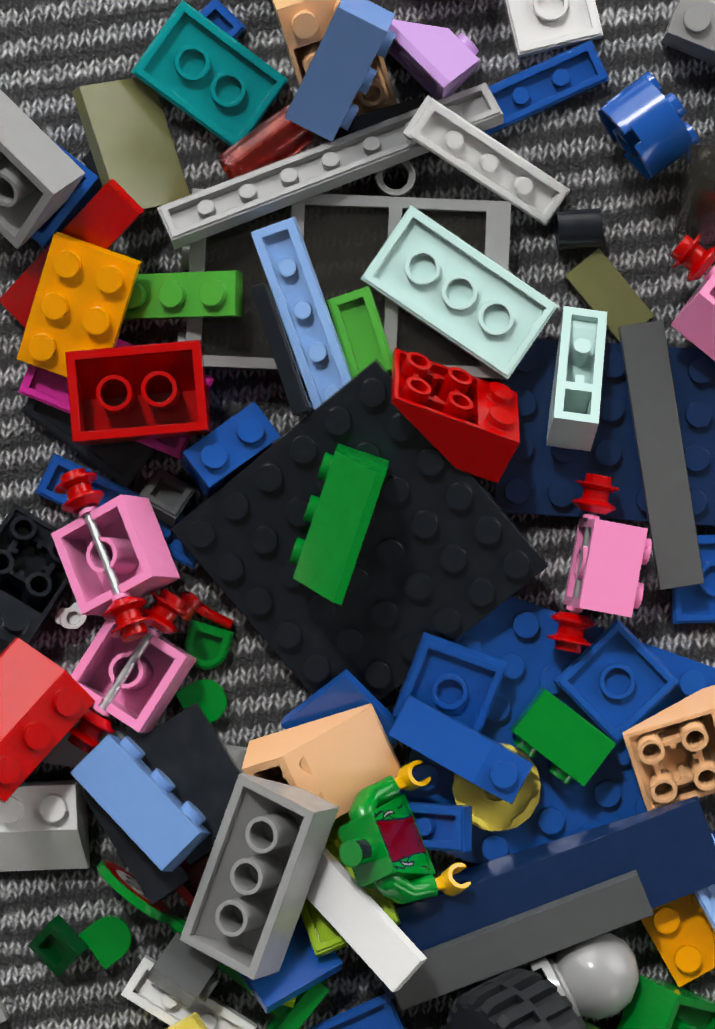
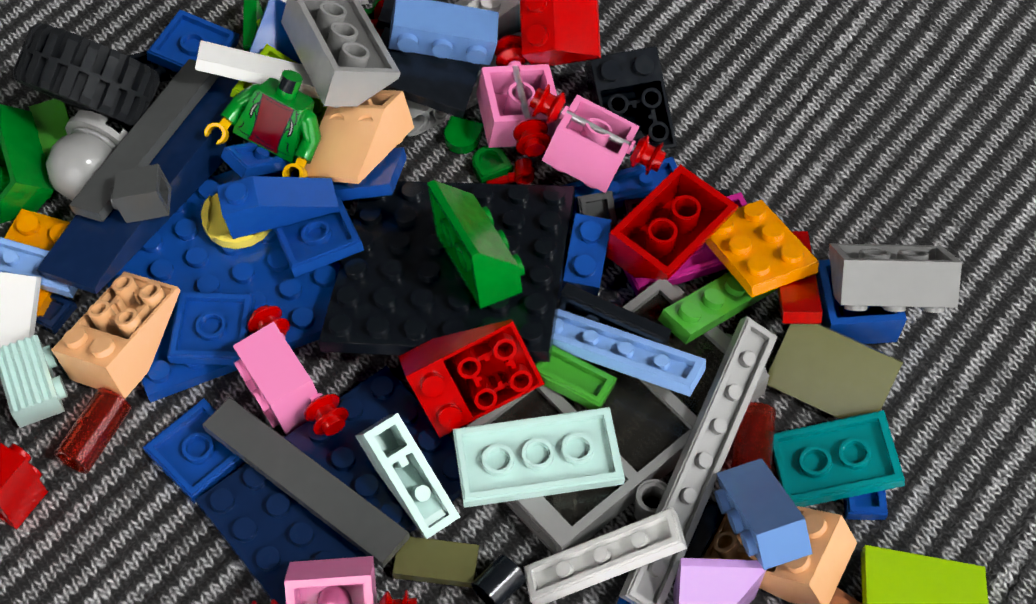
camera: 140 degrees right, 30 degrees down
(562, 737) = (219, 264): green brick -> none
(585, 858) = (141, 193): none -> dark grey brick

